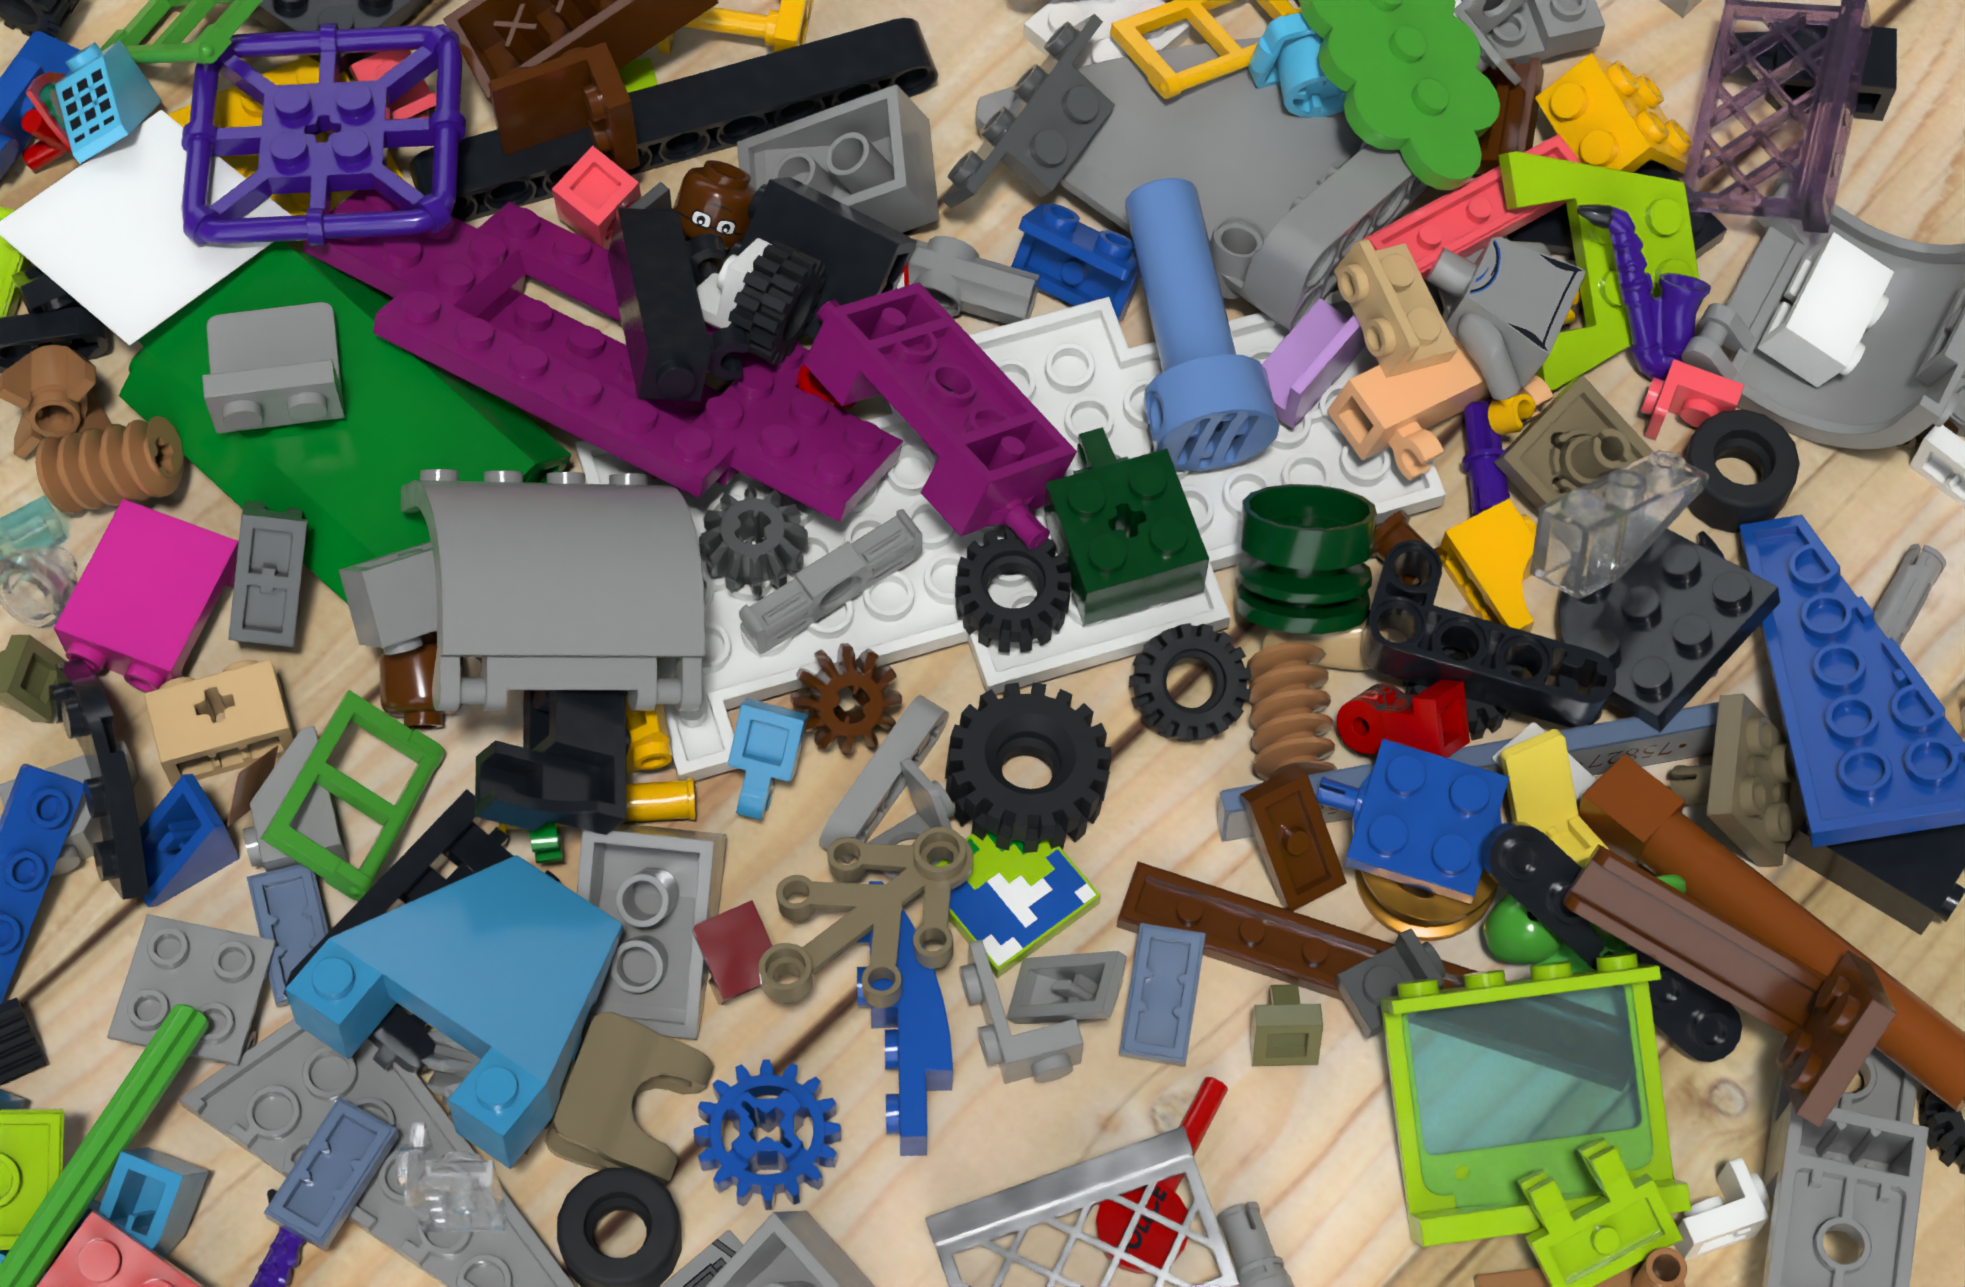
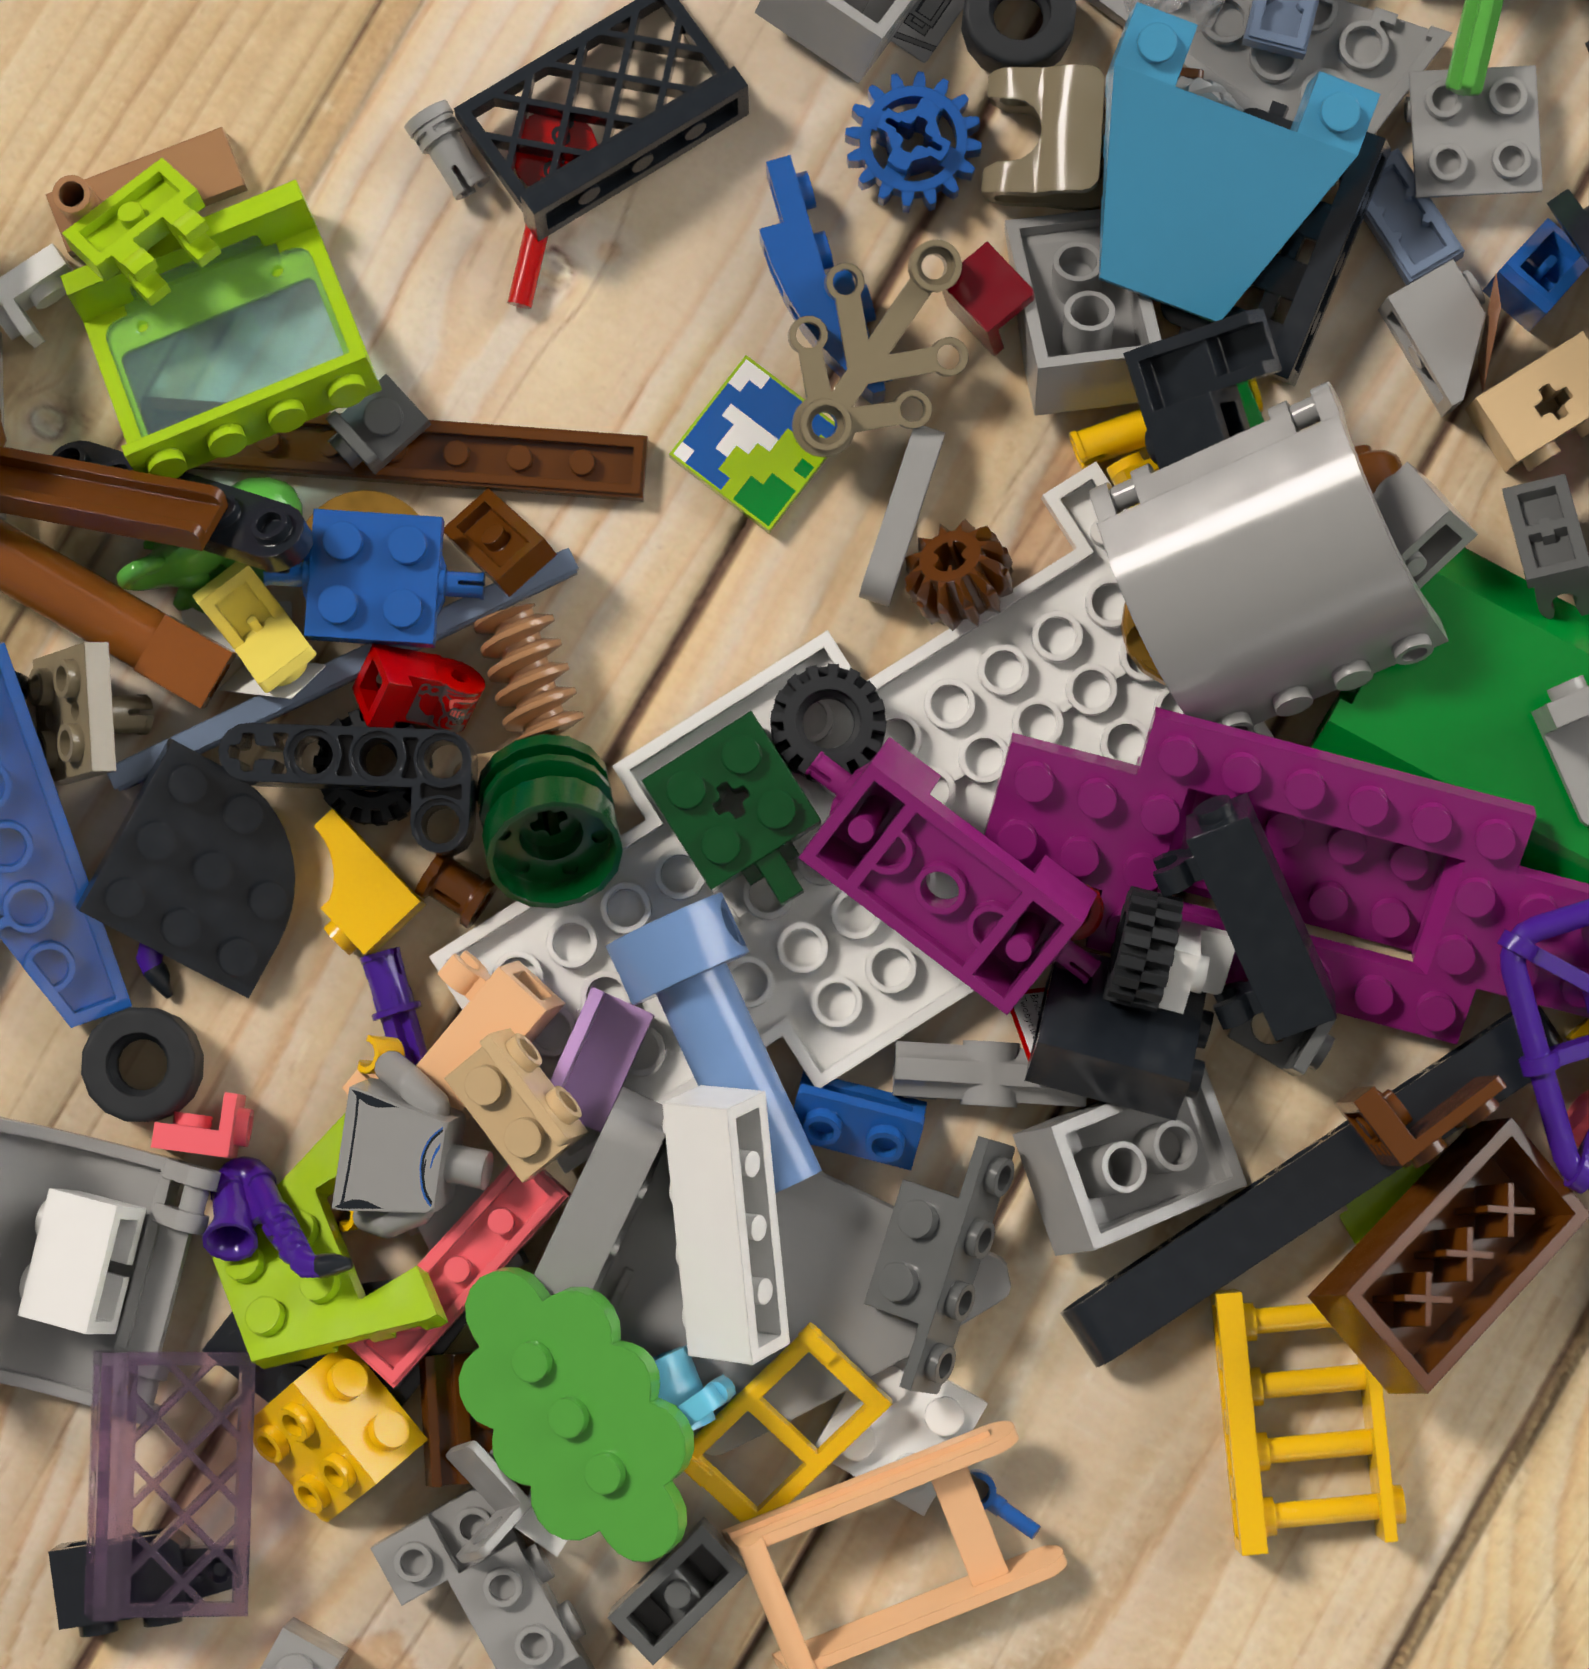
camera: 170 degrees right, 20 degrees up
(336, 871) = (1435, 355): bright green window -> none
(592, 193) = (1364, 1051): coral brick -> none
(715, 202) = (1243, 1081): reddish brown head -> none
(757, 520) = (1115, 706): dark grey gear -> none
(768, 748) = (1018, 498): dark azure plate -> none
(831, 582) = (1006, 683): light grey piece -> none
(931, 805) = (854, 488): light grey bracket -> none
(1034, 728) = (719, 545): black tyre -> none
(1041, 1053) = (684, 282): light grey bracket -> none
(1067, 987) = (674, 345): light grey slope -> none
(1162, 994) = (587, 371): sand blue plate -> none
(1226, 167) = (726, 1223): none -> white brick
(1228, 677) = (615, 655): black tyre -> none
(1286, 1030) = (466, 364): olive tile -> none
(1593, 445) = (283, 1015): dark tan plate -> none
(1610, 523) = (252, 953): clear slope -> none

